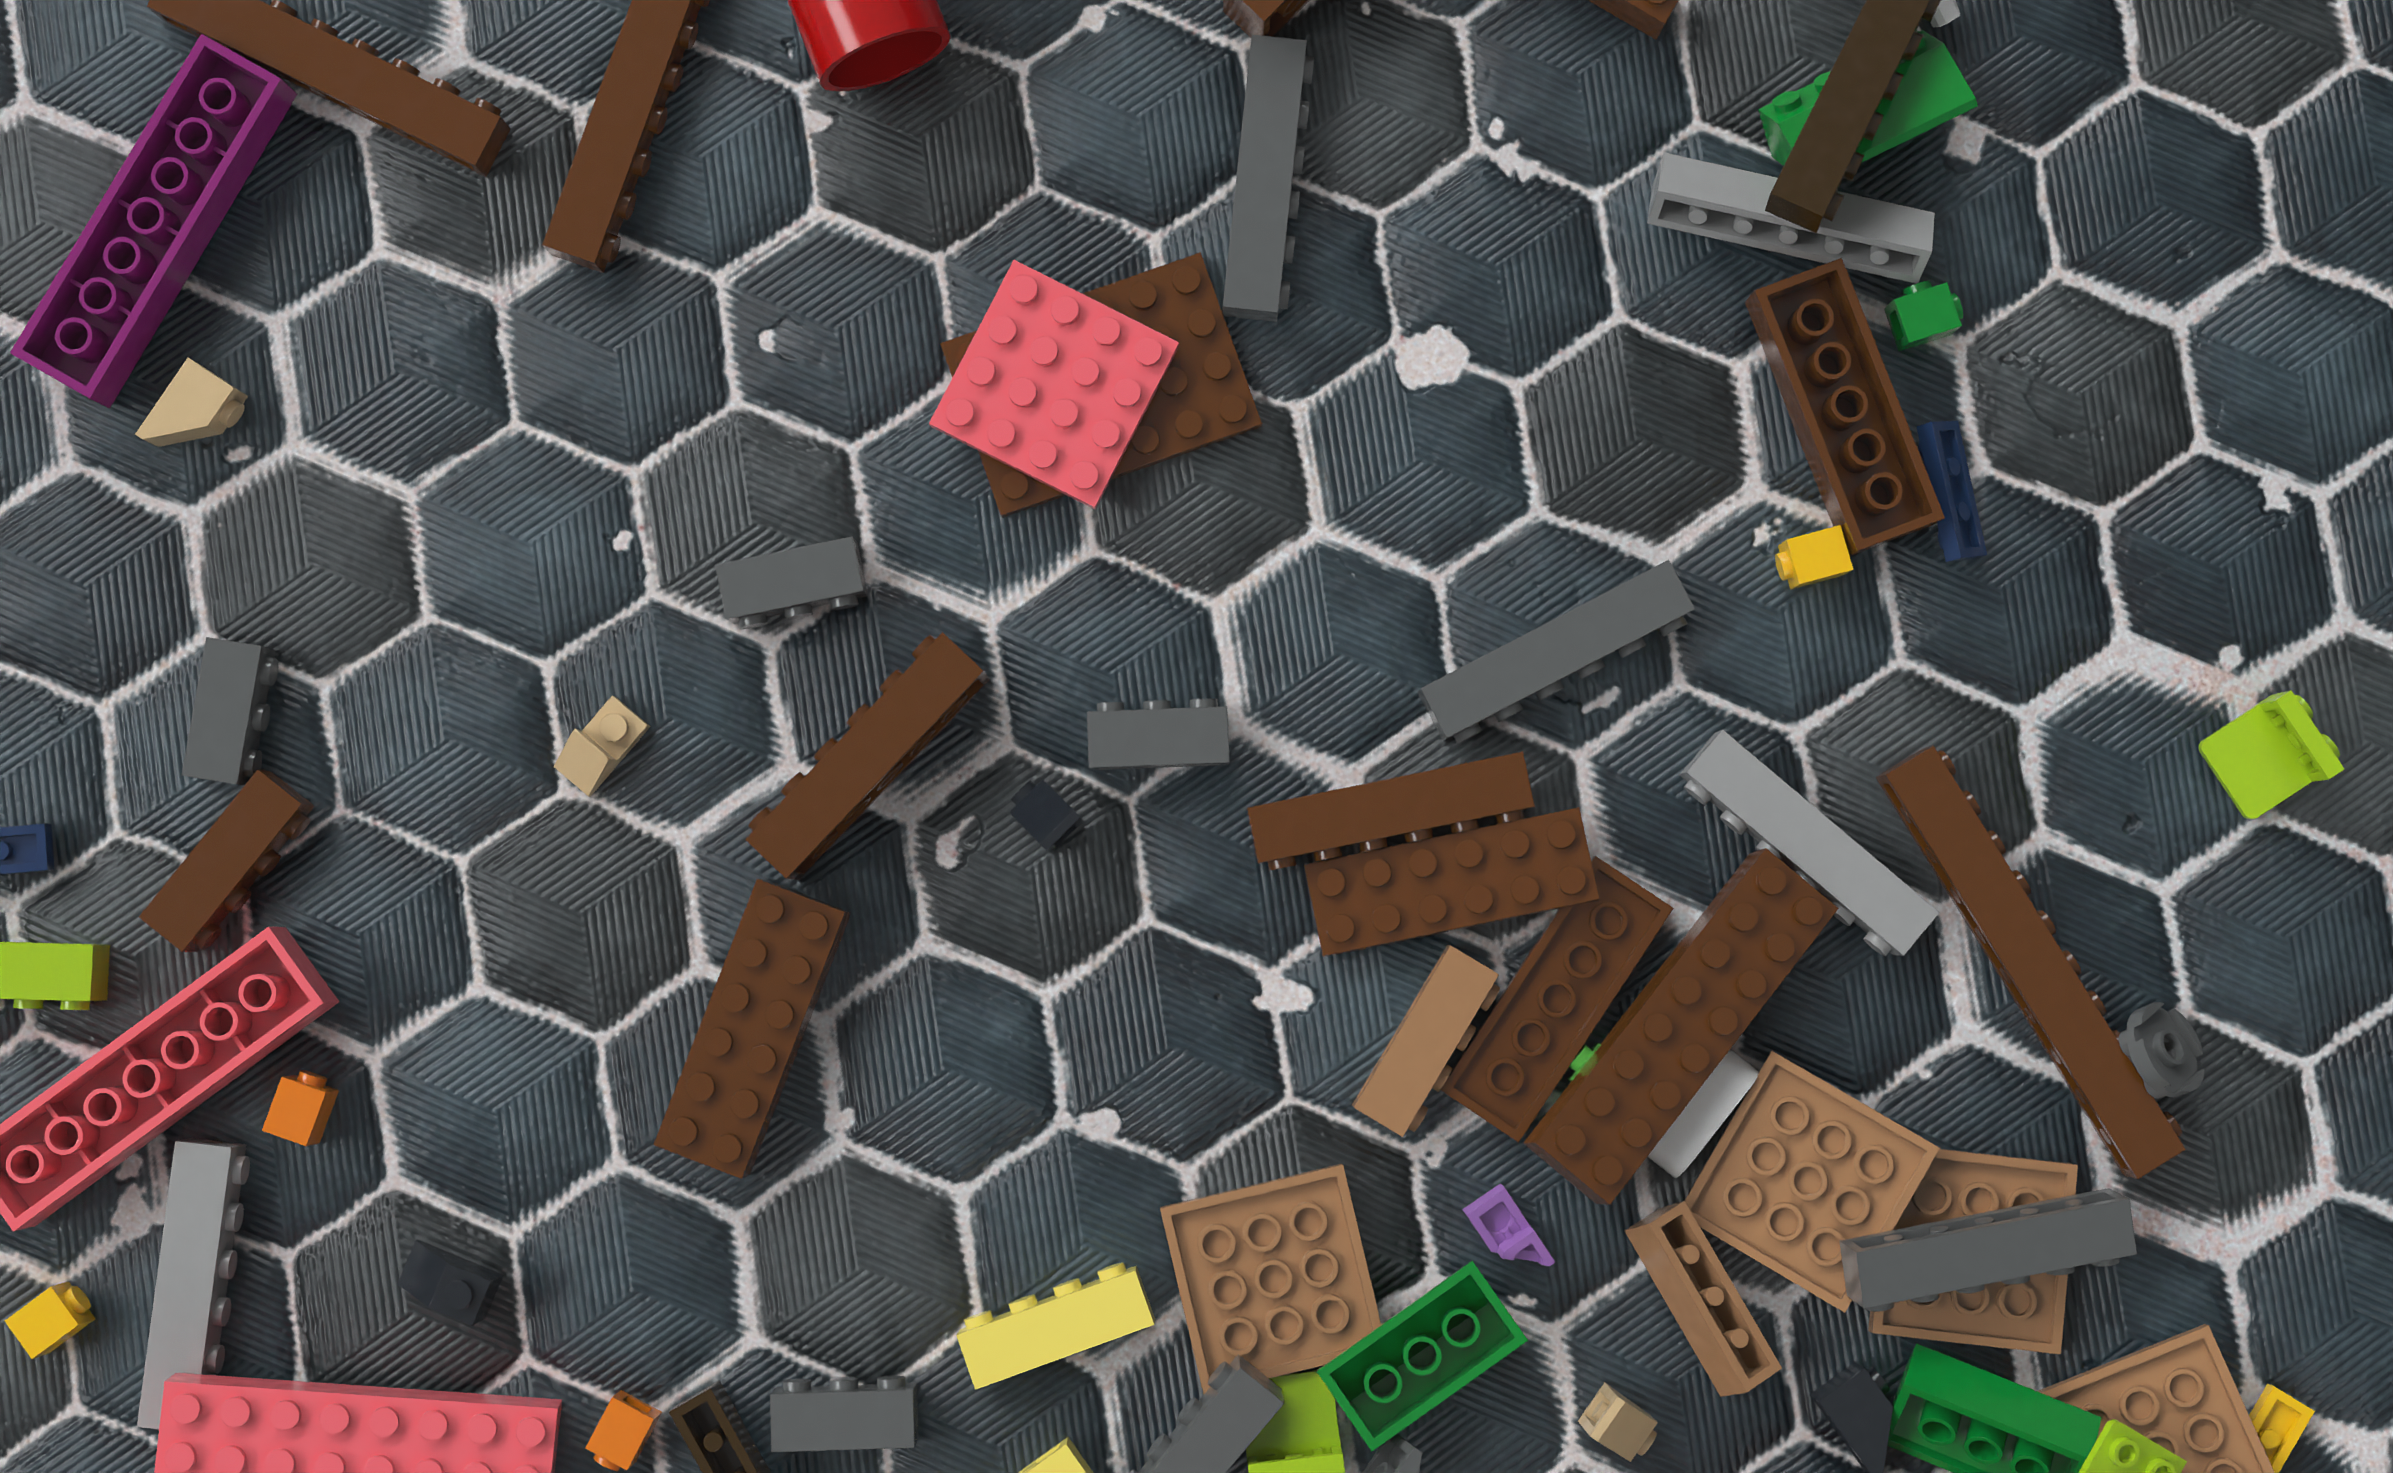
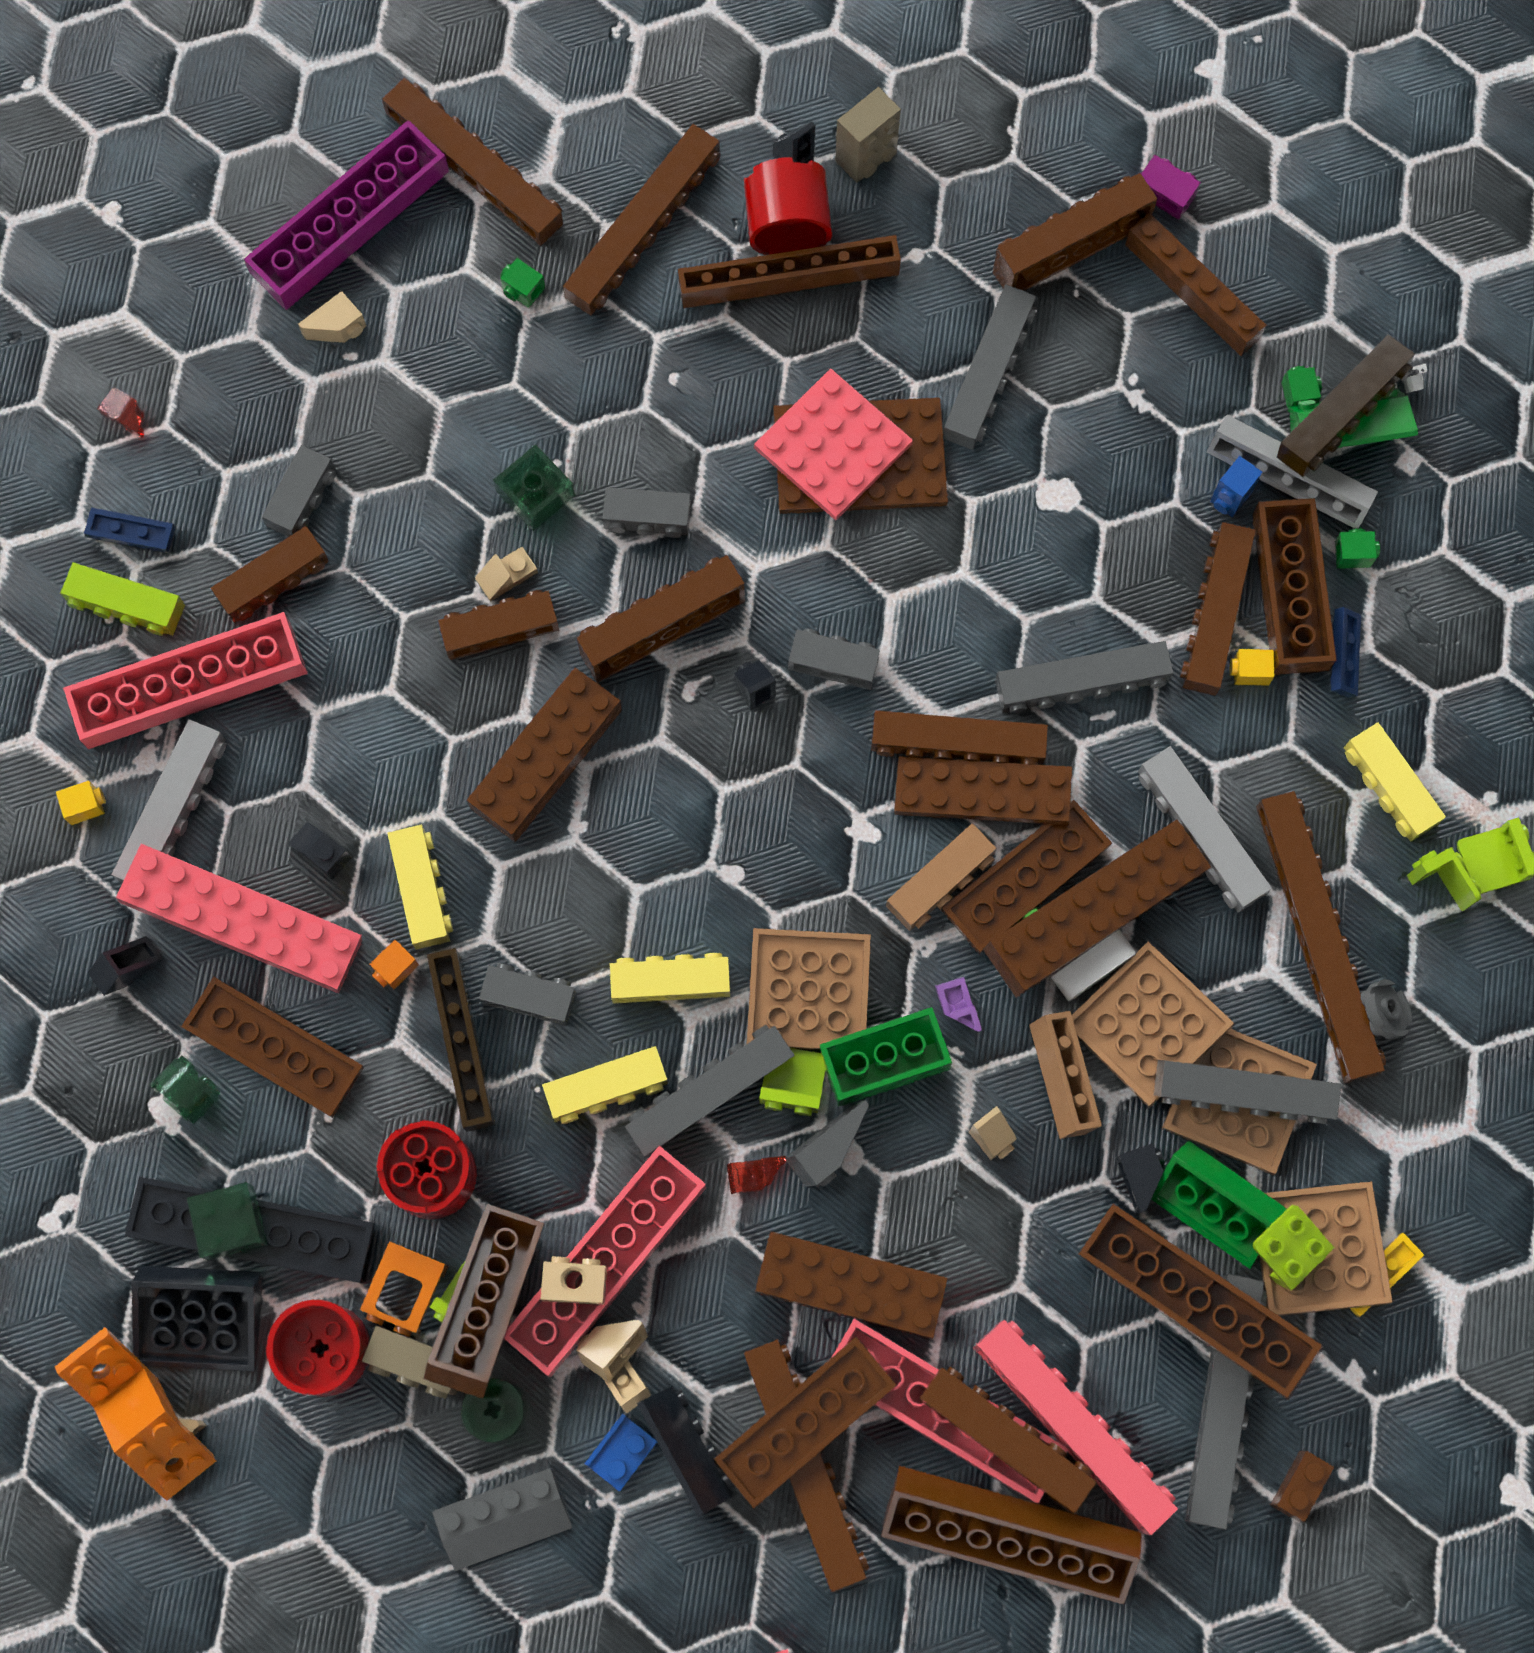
camera: 15 degrees right, 10 degrees down
(301, 1108) = (266, 725): orange brick -> none
(474, 254) = (522, 283): none -> green brick
(601, 596) = (534, 487): none -> clear green brick
(615, 836) = (498, 624): none -> reddish brown brick
(623, 1295) = (419, 887): none -> light yellow brick
(899, 112) = (789, 271): none -> reddish brown brick
(1710, 272) = (1235, 487): none -> blue brick
(1734, 476) = (1218, 608): none -> reddish brown brick
(1767, 69) = (1301, 385): none -> green brick
(2079, 681) = (1394, 782): none -> light yellow brick
(2208, 800) = (1453, 874): none -> lime bracket

